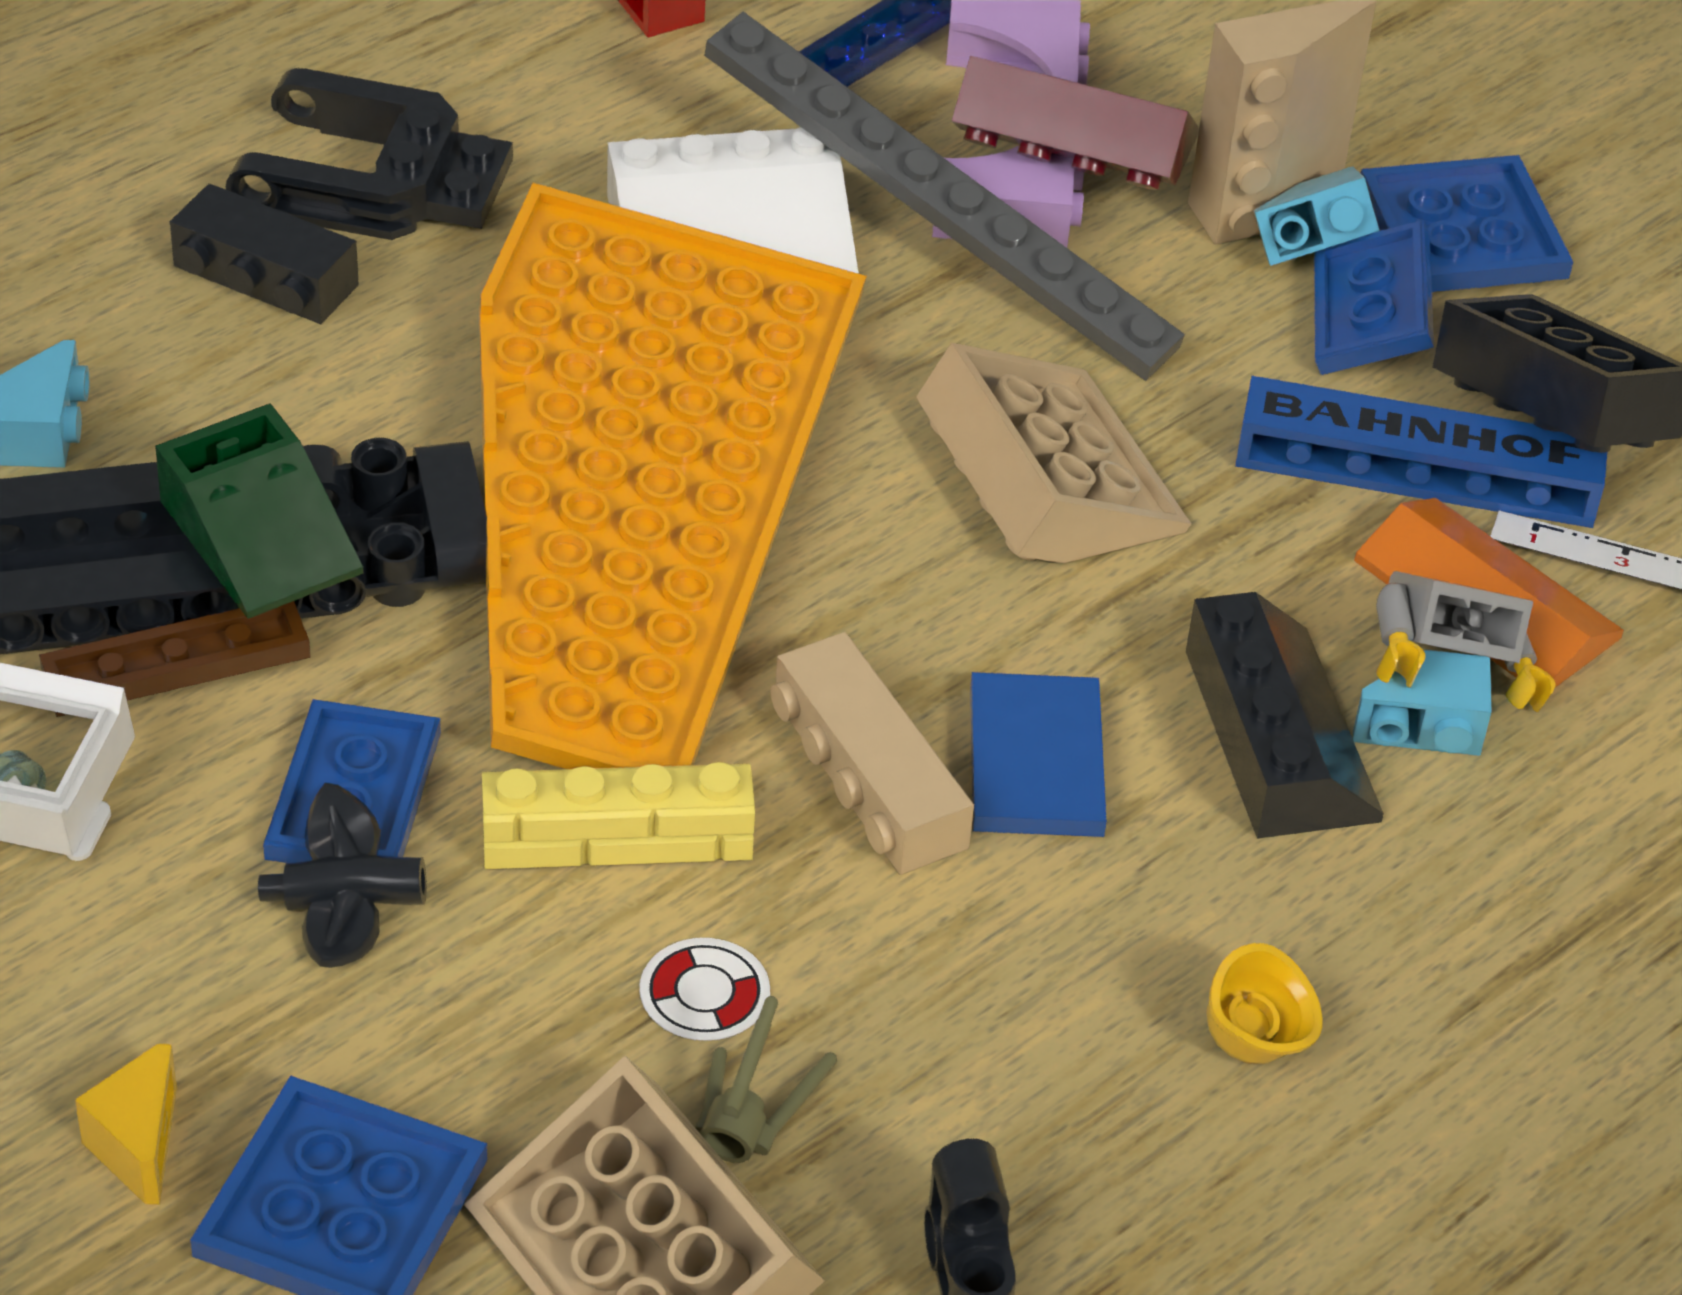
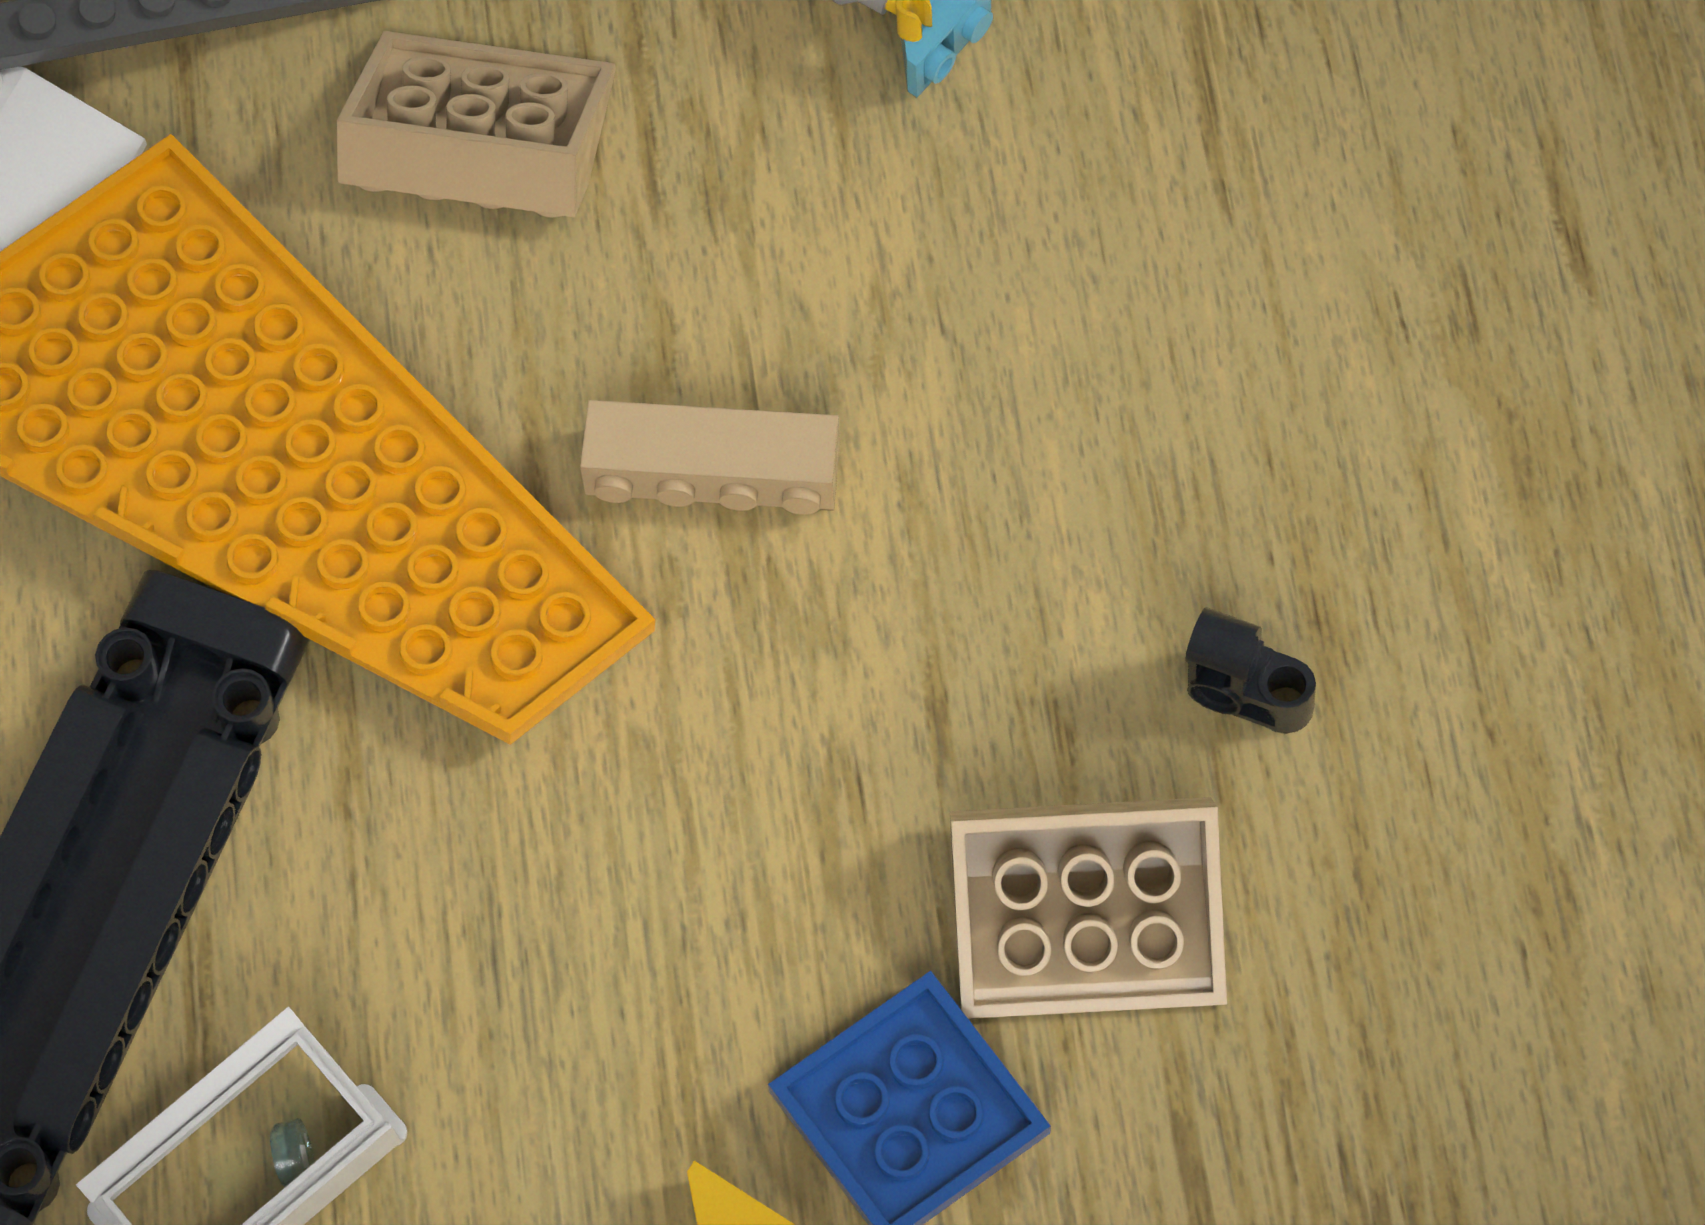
camera: 50 degrees left, 20 degrees up
(186, 652) = (227, 944): reddish brown plate -> none
(255, 510) = (153, 791): dark green slope -> none
(343, 879) = (582, 938): black plant -> none
(370, 753) = (470, 877): blue tile -> none
(617, 815) = (656, 688): light yellow brick -> none
(704, 989) = (856, 722): sticker -> none
(736, 1120) = (1017, 773): olive plant -> none
(1037, 755) = (784, 332): blue tile -> none
(1262, 1005) = (1161, 335): yellow helmet -> none
(1277, 718) = (871, 139): black slope -> none

